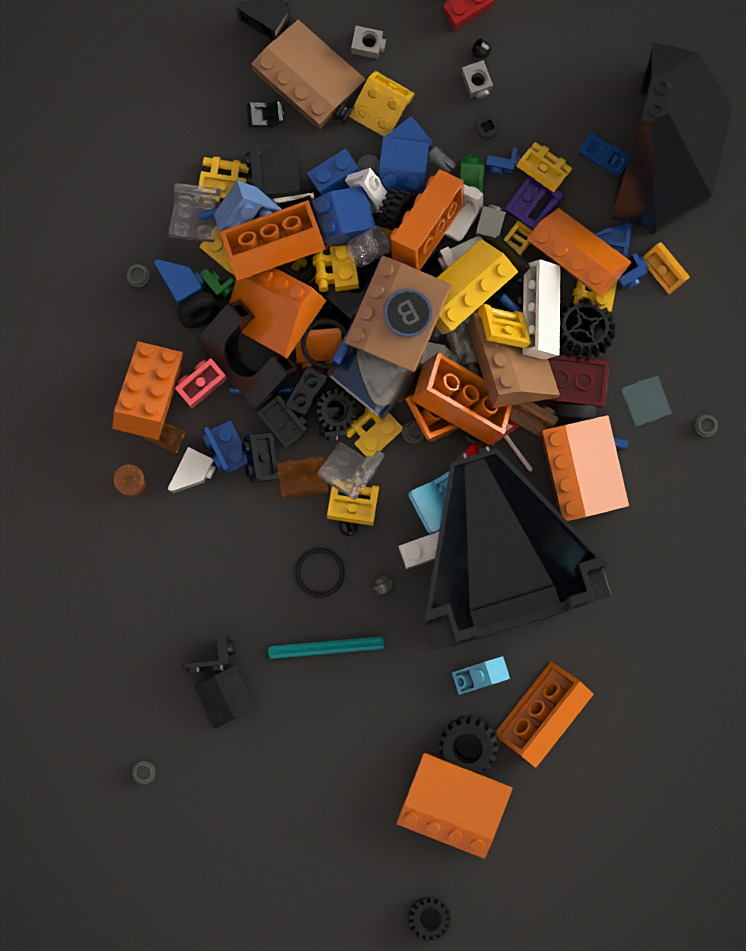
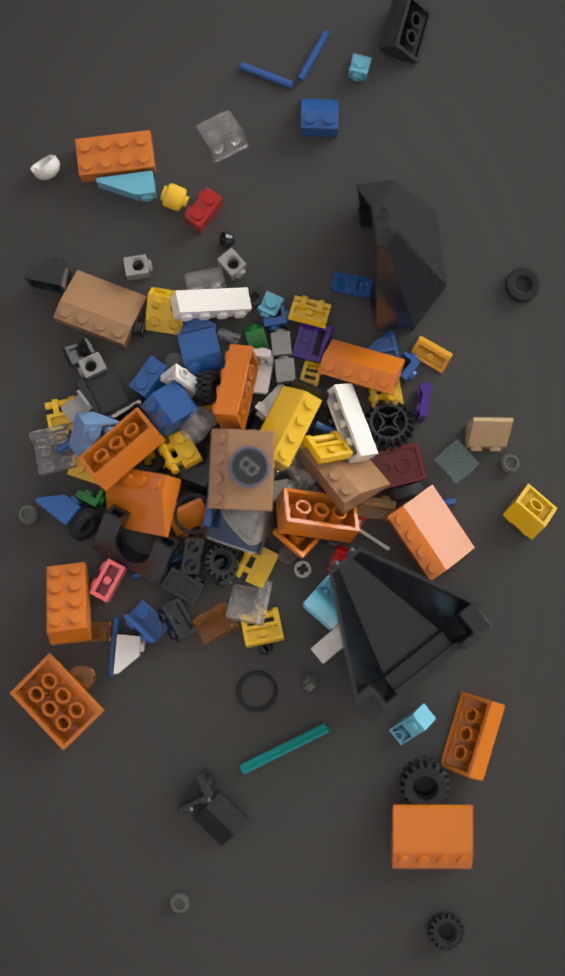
camera: 20 degrees left, 0 degrees up
(93, 495) = (57, 701): none -> orange slope
(187, 442) = (115, 630): none -> blue bar
(242, 172) = (77, 404): none -> light grey bracket
(278, 127) = (94, 358): none -> light grey brick
(422, 448) = (298, 564): none -> light grey bush
(435, 115) = (210, 303): none -> white brick
(438, 88) = (205, 279): none -> clear bracket
(497, 190) = (281, 343): none -> light grey brick
(502, 143) = (270, 305): none -> medium azure bracket
(629, 322) = (422, 406): none -> dark purple plate
(692, 381) = (487, 433): none -> tan slope
(707, 488) = (530, 511): none -> yellow slope

